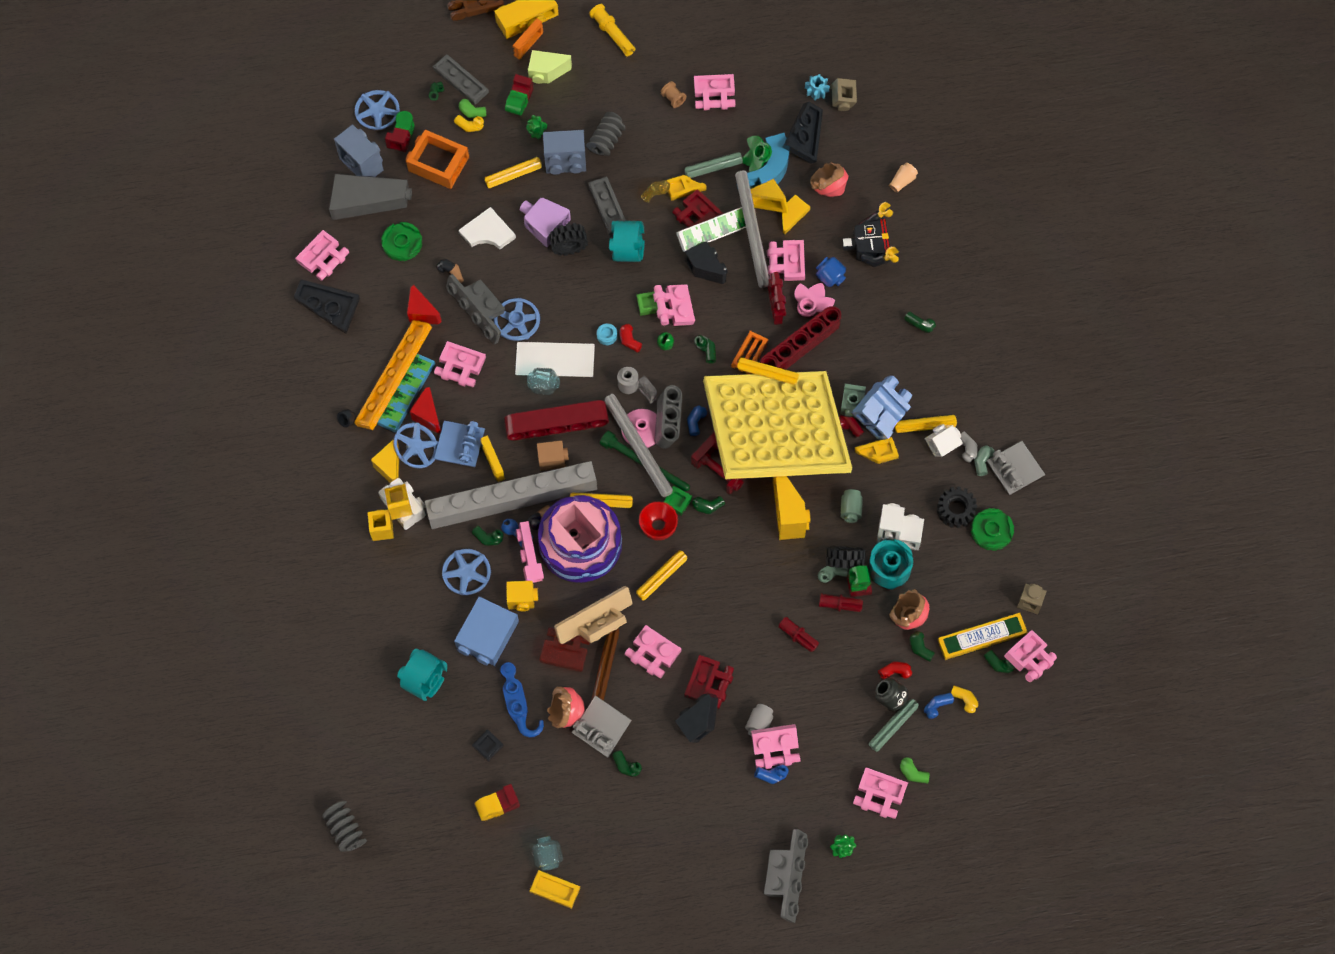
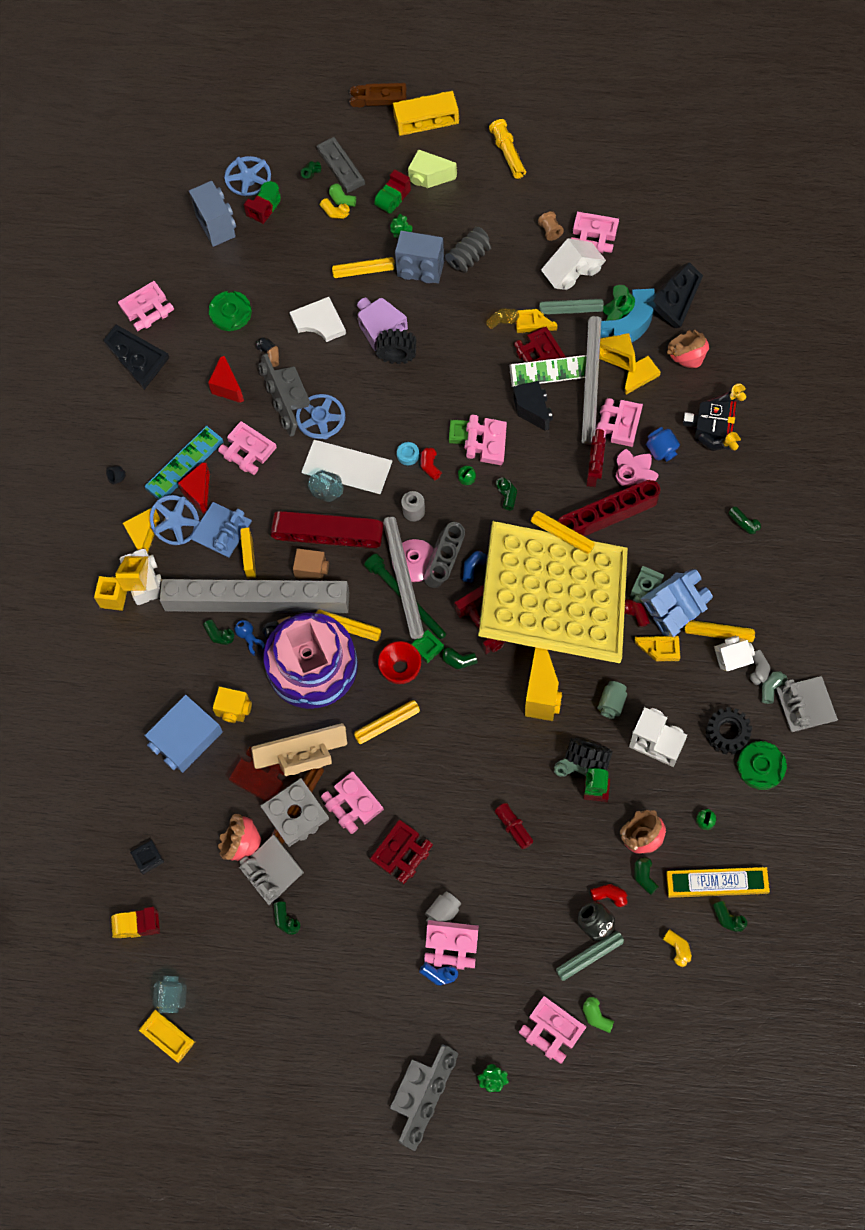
camera: 20 degrees right, 0 degrees up
(367, 195) = (209, 257): dark grey slope -> none
(393, 375) = (176, 442): light orange tile -> none
(422, 674) = (100, 762): teal brick -> none
(454, 168) = (304, 250): orange window -> none
(466, 571) = (184, 664): medium blue wheel -> none
(516, 701) = (191, 817): blue piece -> none
(528, 38) = (419, 138): orange tile -> none
(532, 570) = (252, 682): bright pink plate -> none
(606, 202) = (450, 323): dark grey tile -> none
(613, 685) = (299, 828): none -> light grey piece
(627, 241) = (456, 362): teal brick -> none
(647, 389) = (431, 520): clear tile -> none
(699, 719) = (377, 891): black slope -> none
(703, 124) = (571, 261): none -> white brick
(760, 350) = (549, 499): orange tile -> none
(817, 87) = (703, 251): medium azure gear -> none
(840, 603) = (570, 803): dark red axle -> none
(843, 94) = (729, 264): dark tan brick -> none
(890, 552) = (637, 761): teal brick -> none
(903, 177) = (769, 363): light nougat cone -> none
(937, 701) = (647, 942): blue arm -> none
(954, 586) = (701, 816): none -> green hinge
(1025, 651) = (759, 914): bright pink plate -> none
(1033, 595) = (784, 855): dark tan brick -> none

